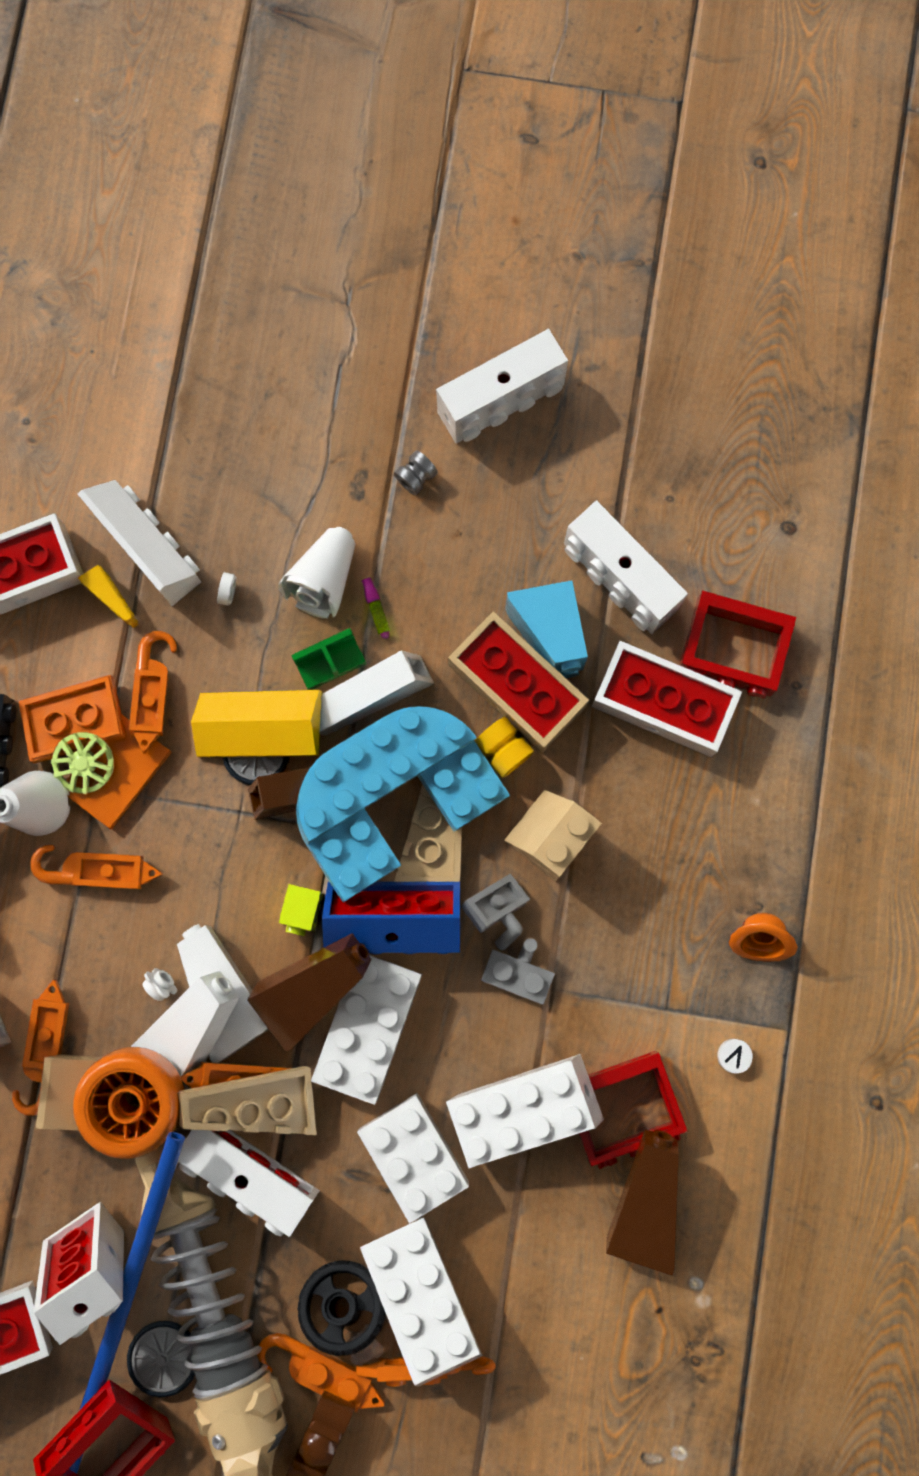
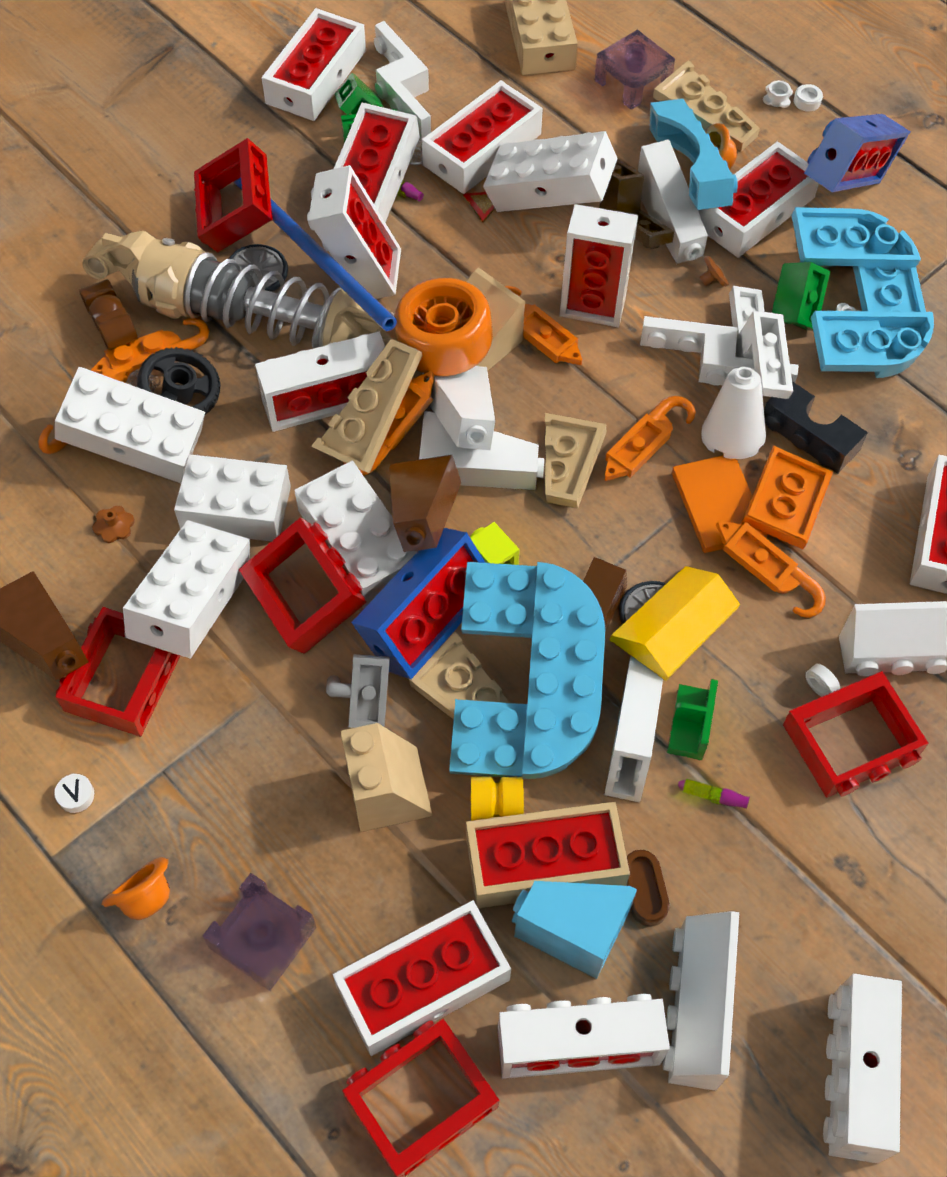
camera: 125 degrees right, 20 degrees down
(82, 762) = (742, 477): yellowish green wheel -> none
(104, 588) = (881, 588): yellow slope -> none
(159, 918) = (570, 457): none -> tan wing
(159, 984) = (523, 418): white plate -> none
(269, 509) = (892, 710): none -> red window
(321, 574) = (782, 765): white cone -> none
(416, 472) = (827, 924): flat silver wheel -> none
(478, 1037) = (348, 600): none -> red window
(485, 599) = (651, 899): none -> reddish brown tile
(506, 1233) = (113, 524): none -> dark orange plant
(518, 974) = (297, 675): light grey plate -> none
(534, 512) = (702, 1000): none -> white slope
(721, 832) = (261, 933): none -> clear purple panel

